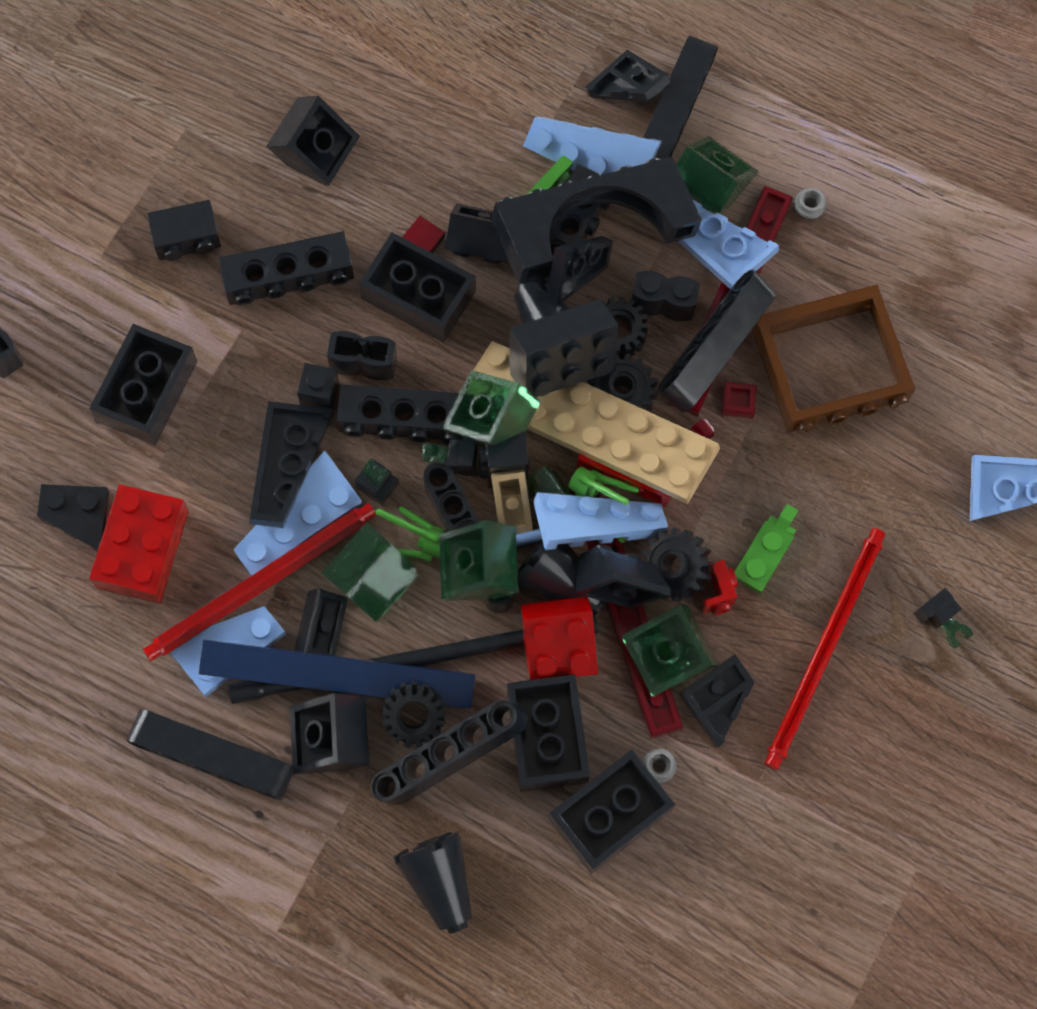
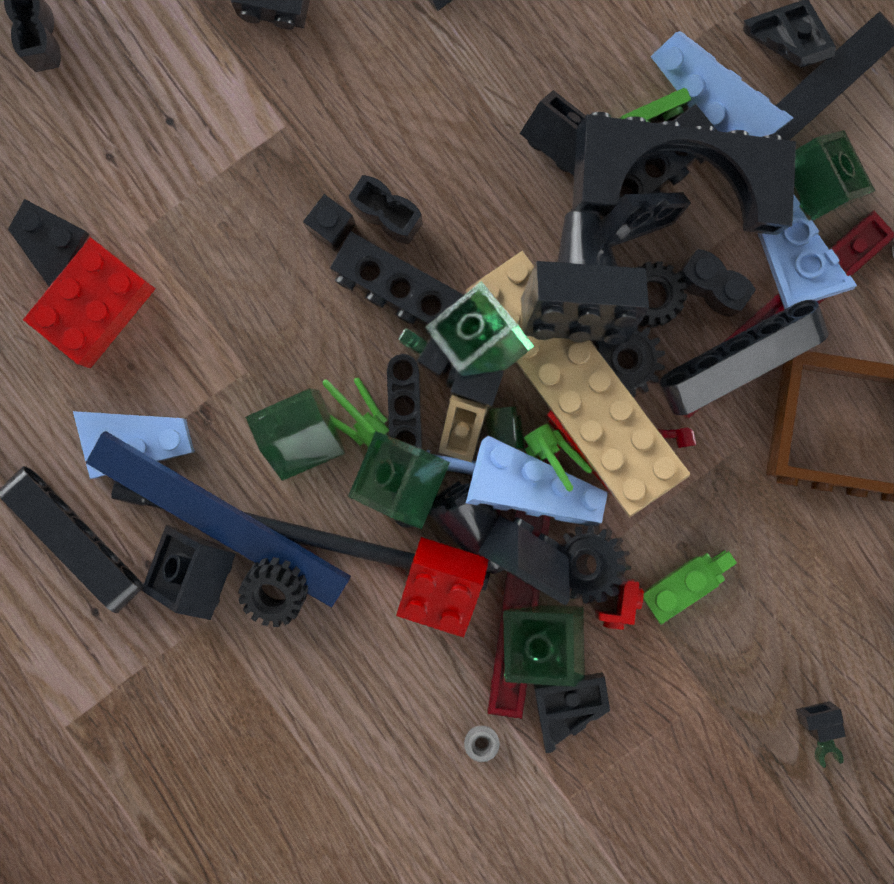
camera: 30 degrees right, 15 degrees up
(143, 384) = (160, 142): black brick -> none
(258, 582) = (187, 393): red piece -> none
(269, 262) = (306, 61): black brick -> none
(286, 454) = (267, 279): black wing -> none
(320, 502) = (262, 341): light blue wing -> none
(321, 622) = (228, 461): black slope -> none
(376, 481) = (344, 343): black piece -> none
(417, 287) = (473, 162): black brick -> none
(424, 234) = (505, 109): dark red tile -> none
(433, 753) = (301, 650): black beam -> none
(439, 879) = (225, 755): black cone -> none
(553, 743) = (388, 671): black brick -> none
(611, 811) = (413, 773): black brick -> none
(739, 400) = (735, 421): dark red tile -> none
(824, 649) = (695, 705): red piece -> none

